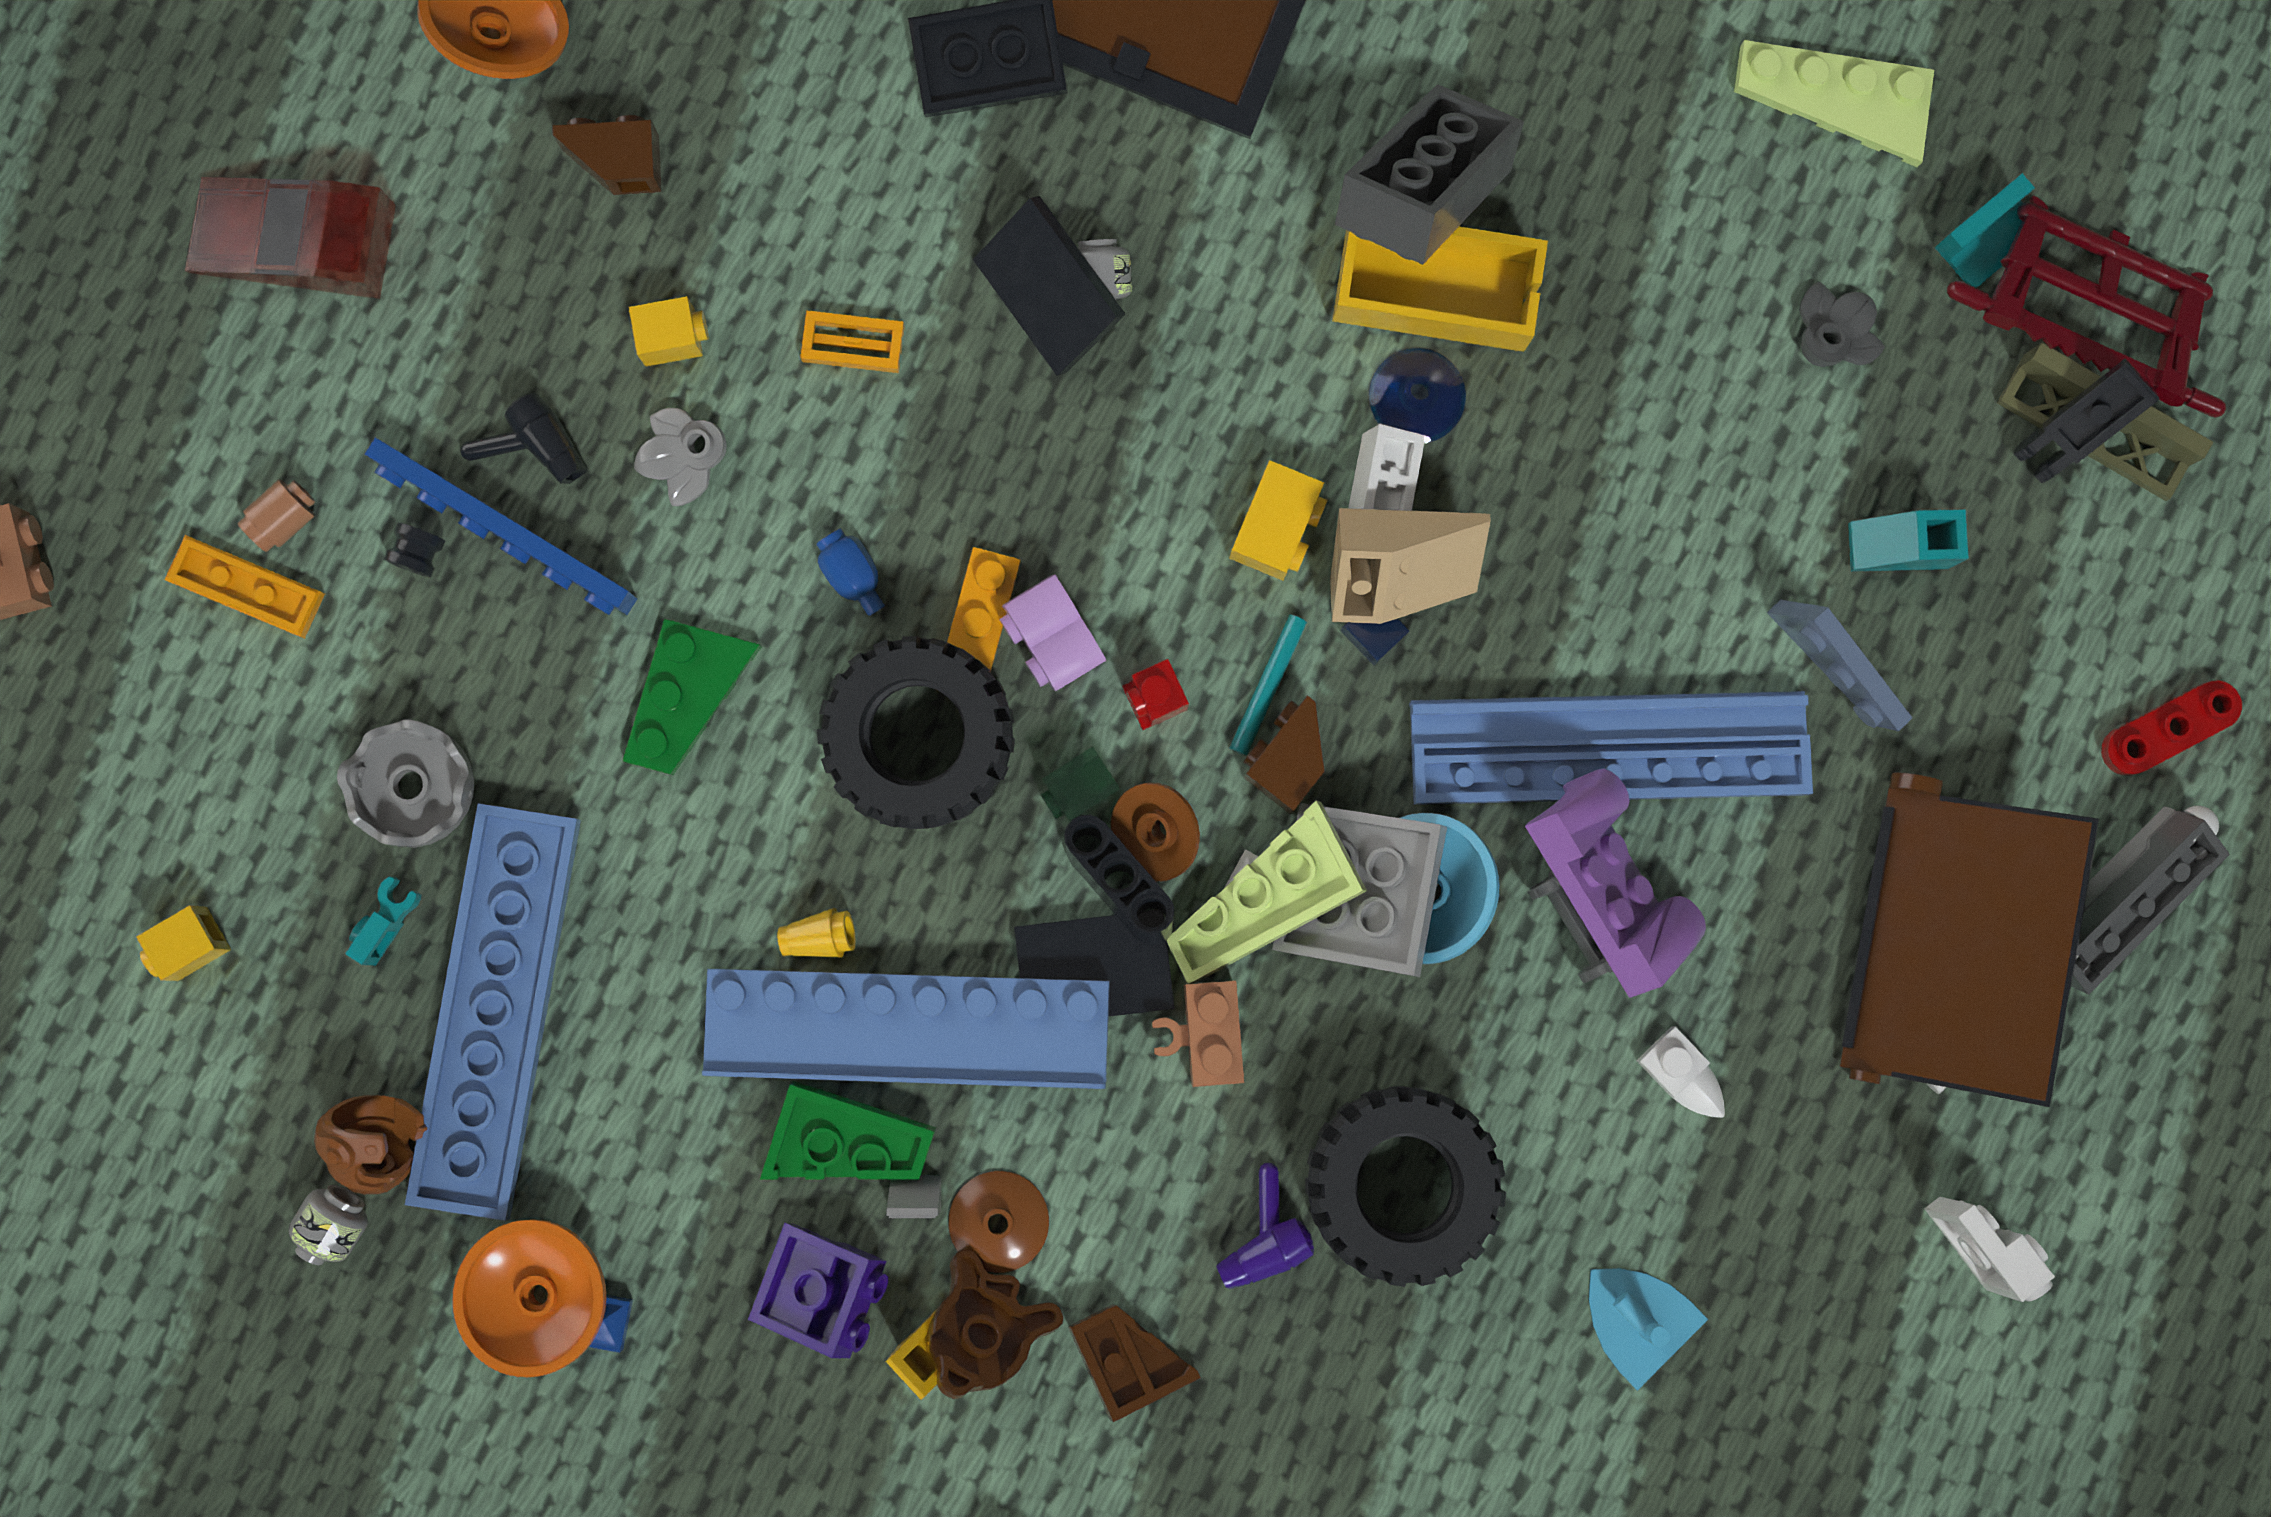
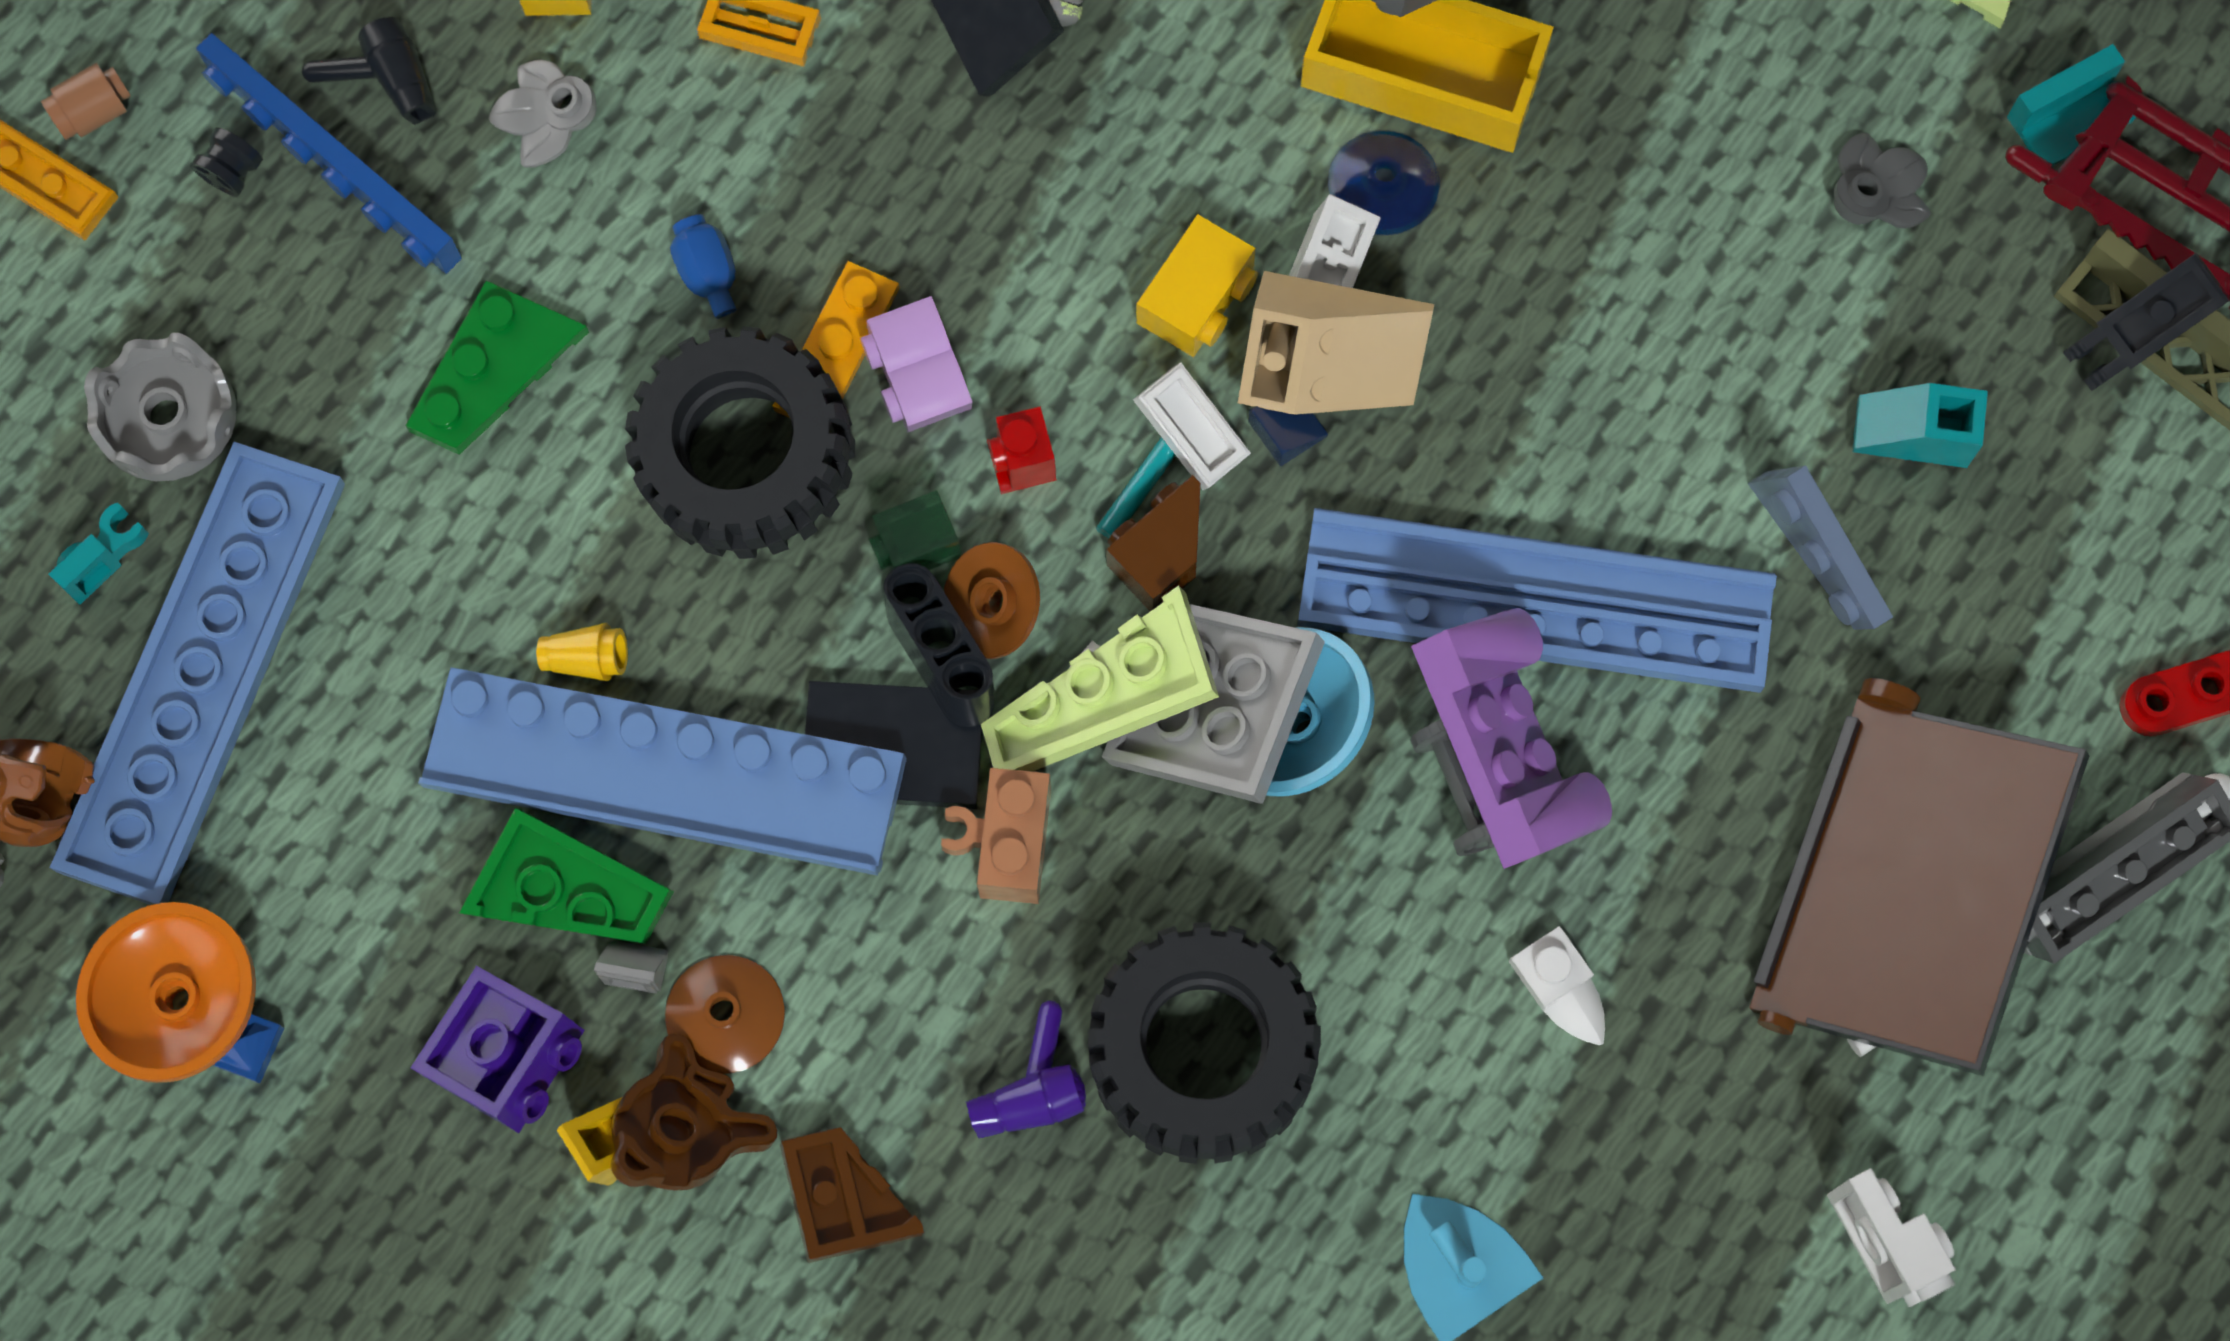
camera: 20 degrees right, 10 degrees down
(1295, 647) = (1191, 426): none -> white tile

